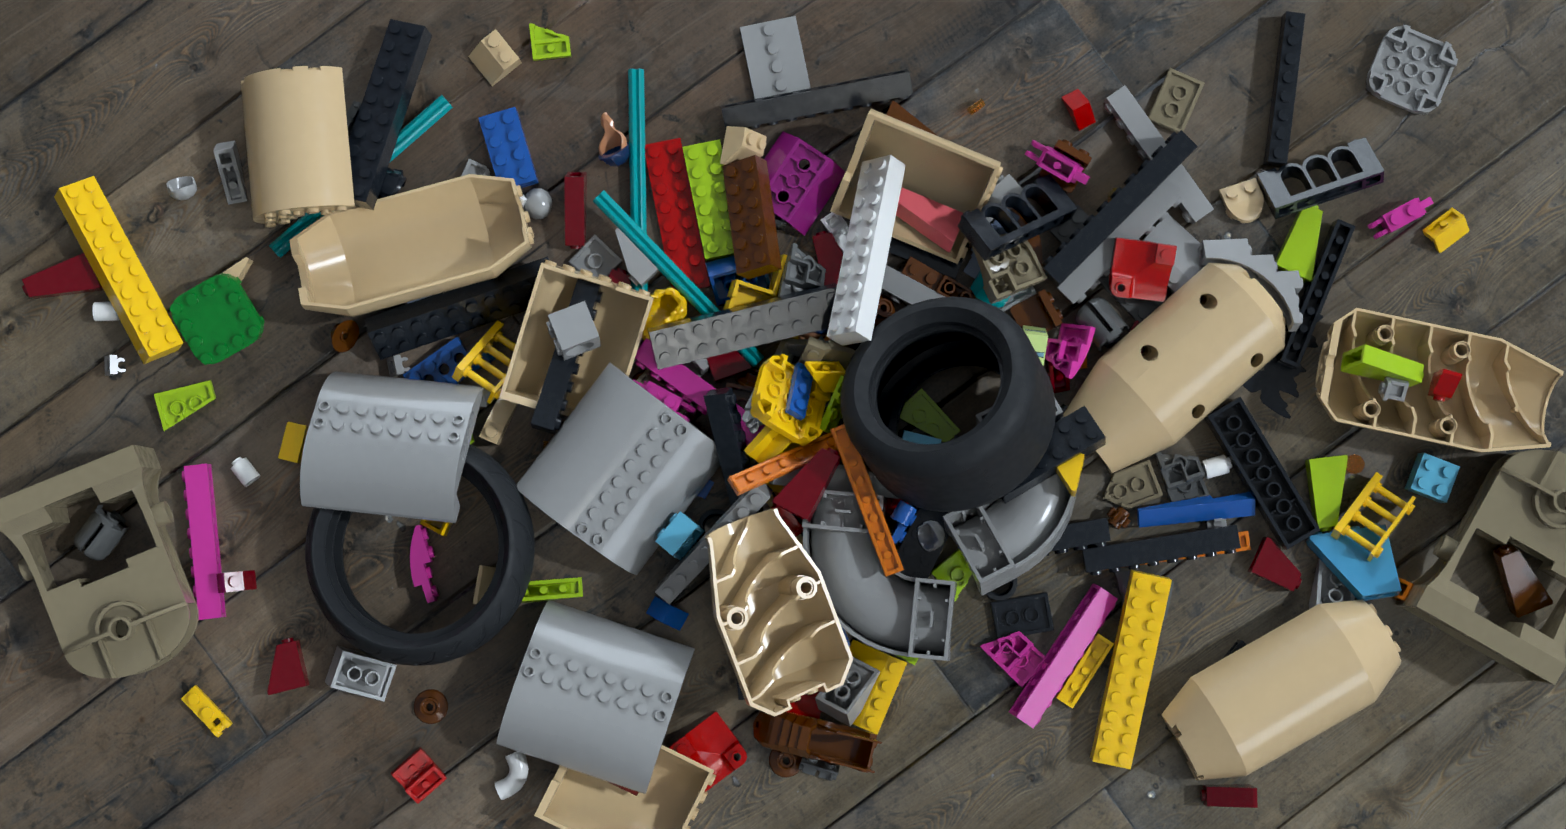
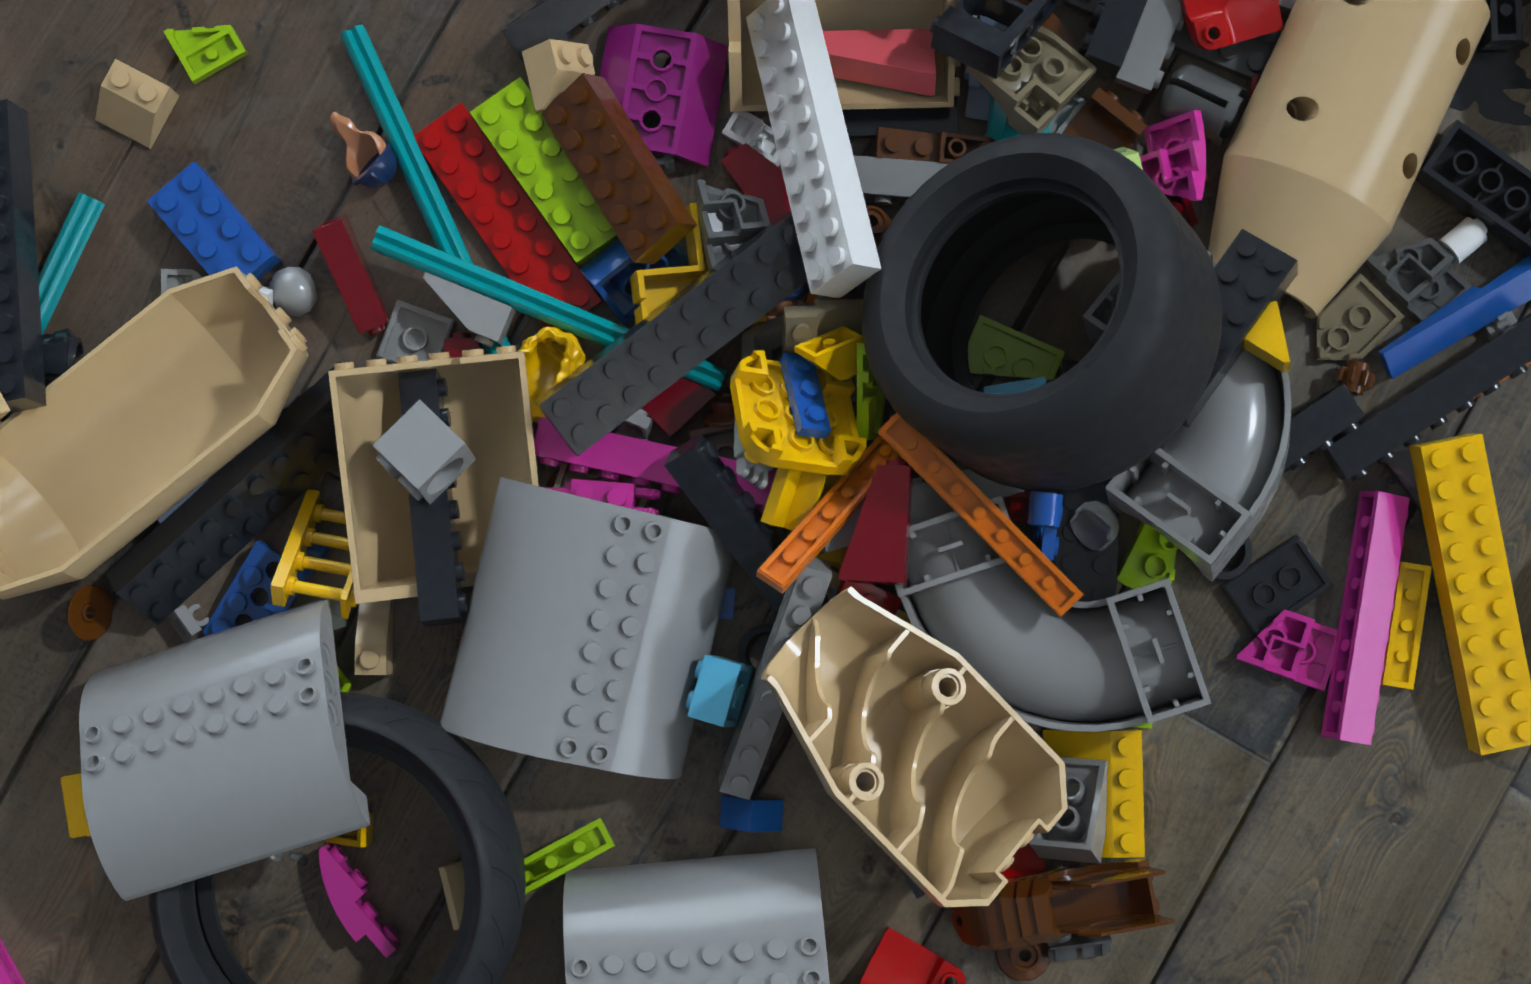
camera: 20 degrees left, 0 degrees up
(244, 471) = (27, 880): white brick -> none

